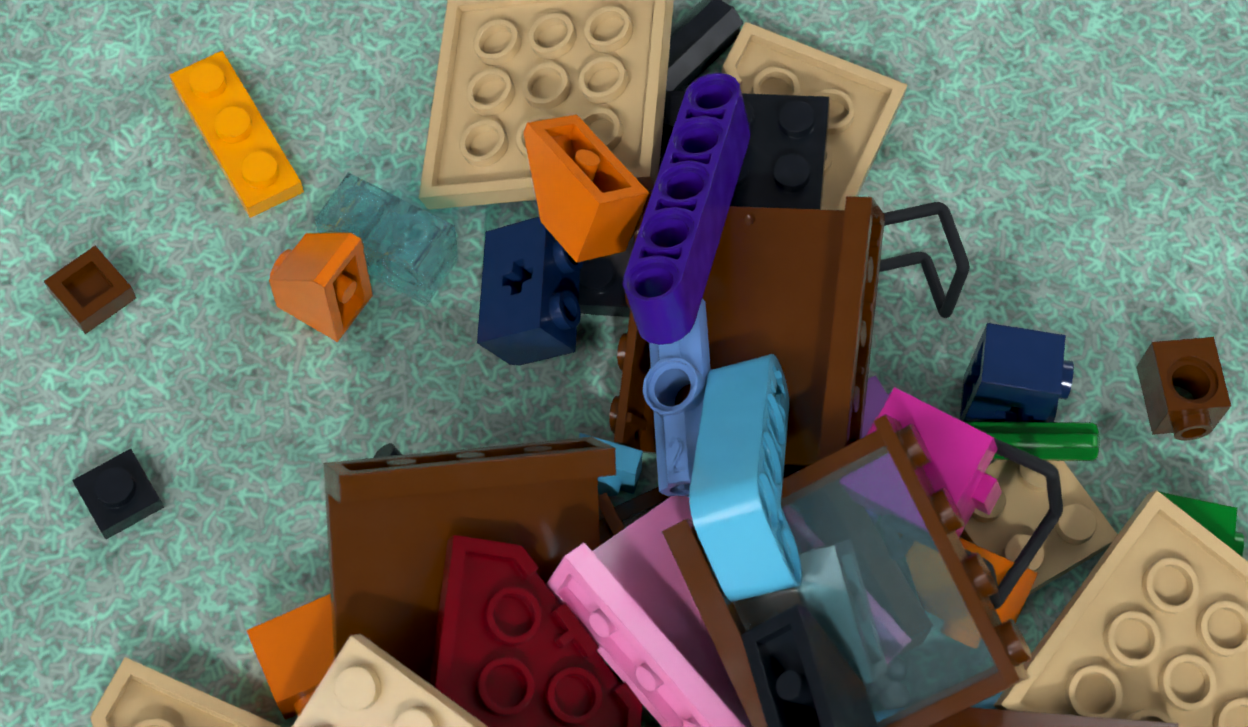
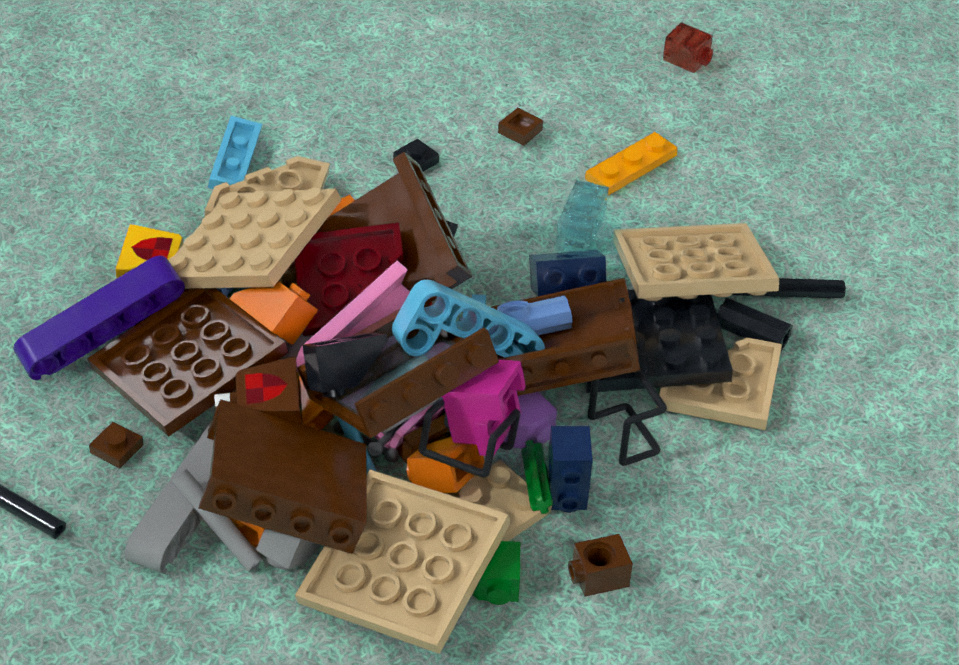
camera: 80 degrees right, 20 degrees down
(323, 281) = (545, 198): orange slope -> none
(582, 188) = (618, 253): orange slope -> none
(687, 209) = (620, 294): dark purple beam -> none

